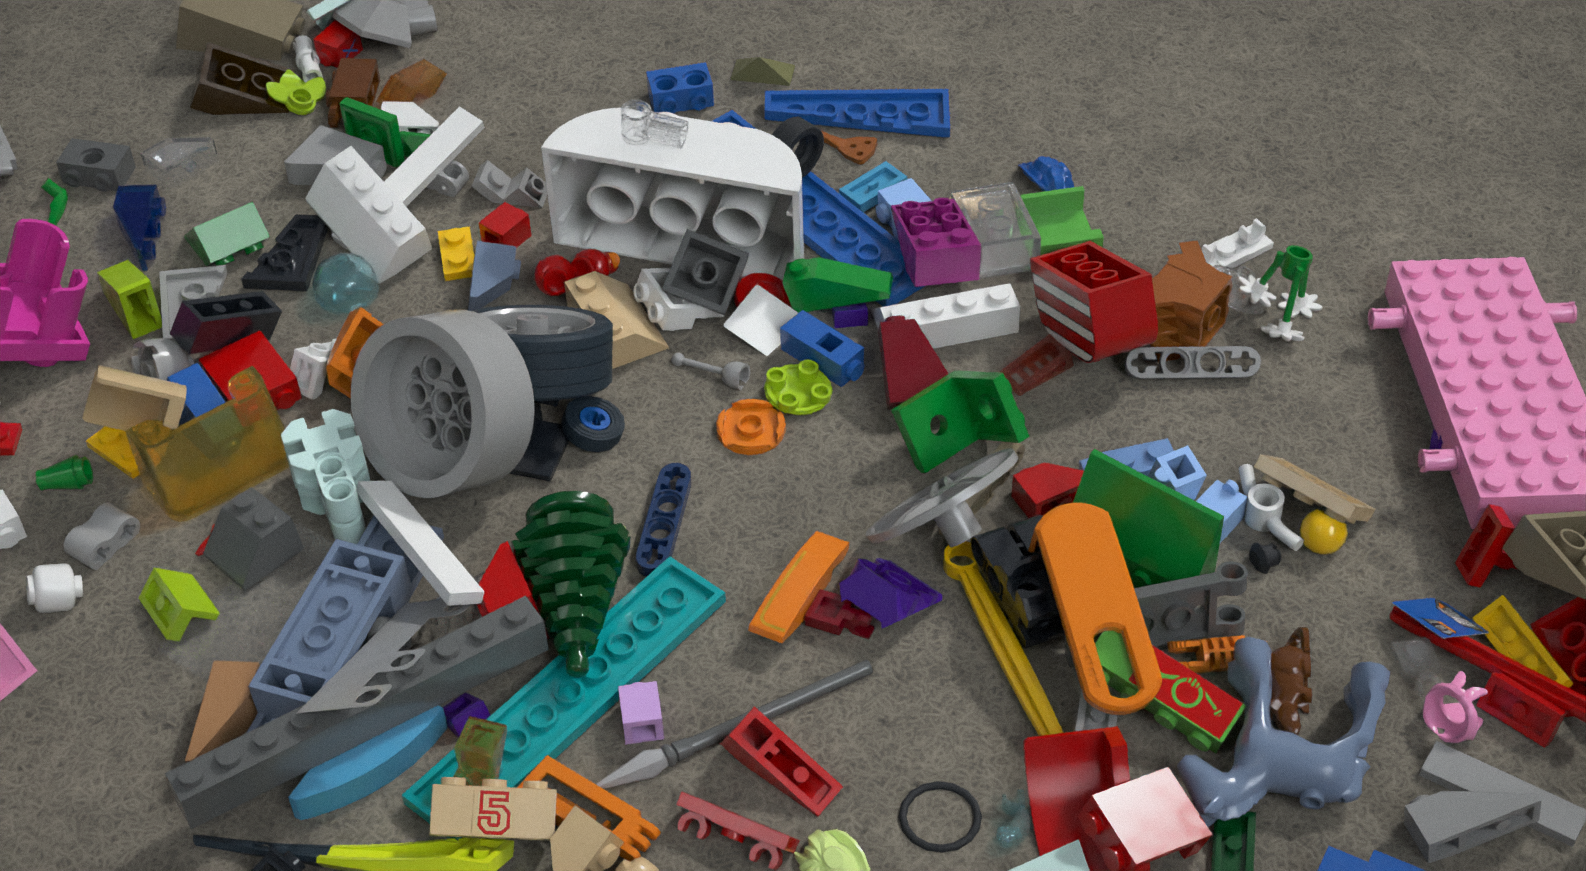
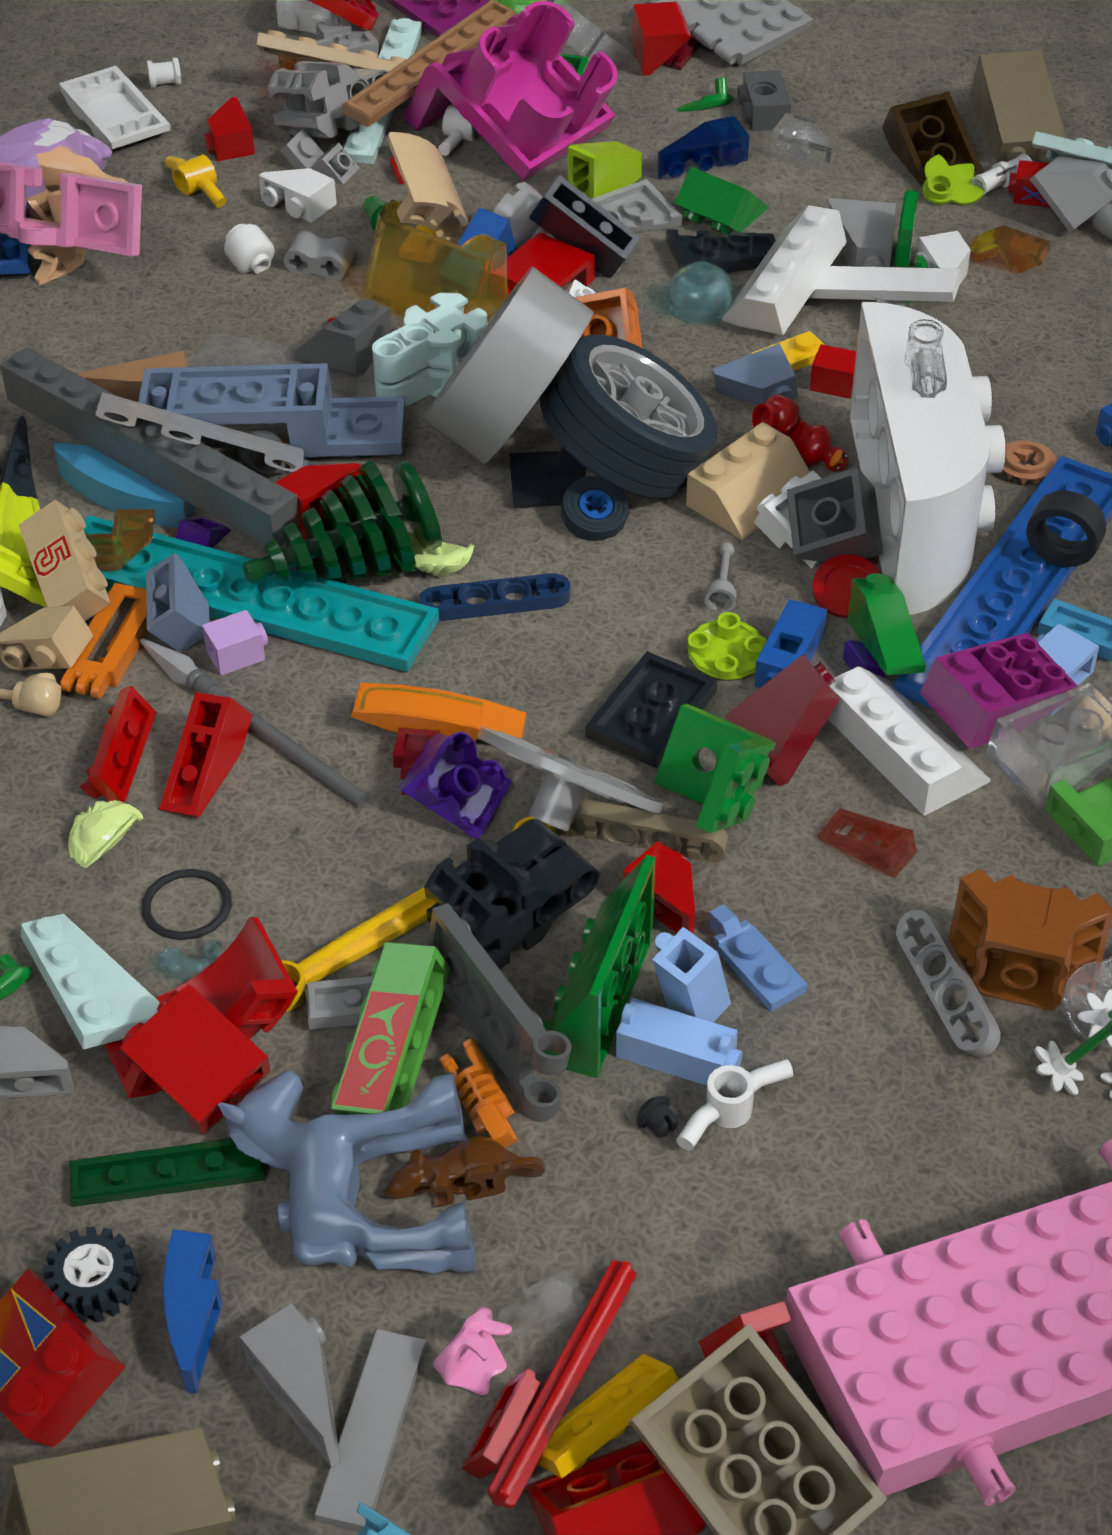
camera: 70 degrees right, 0 degrees up
(173, 600) = (263, 321): lime panel -> none
(355, 80) = (969, 212): reddish brown hinge -> none
(420, 543) = (351, 419): white tile -> none
(576, 740) = (175, 604): none -> sand blue slope
(750, 427) = (655, 637): orange tile -> none
(760, 319) = (817, 586): white sticker -> none
(848, 451) = (645, 708): none -> black plate
(1094, 301) = (950, 827): red brick -> none
(1096, 597) = (450, 921): orange piece -> none
(1313, 490) = (774, 1137): tan plate -> none
(1322, 532) = (714, 1163): yellow piece -> none
(1440, 617) = (618, 1310): blue sticker -> none

